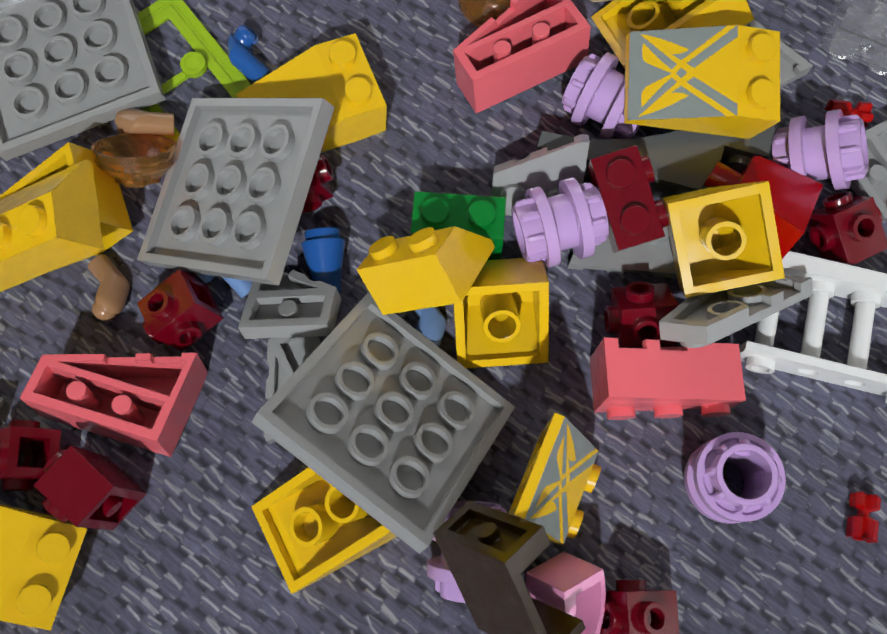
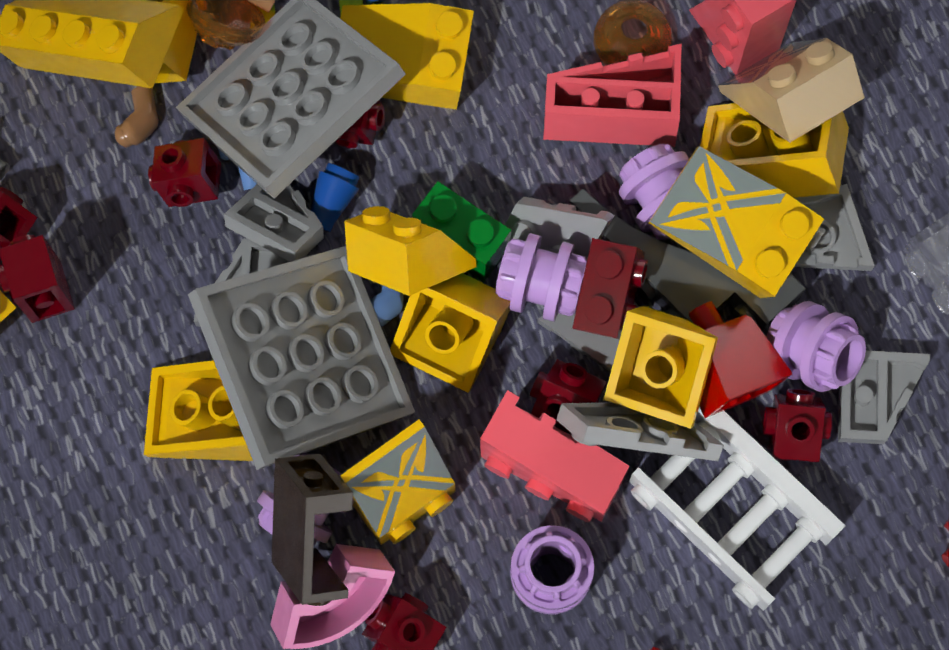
camera: 30 degrees right, 0 degrees up
(121, 398) = (97, 218): coral wedge -> none
(862, 109) = (876, 323): red piece -> none

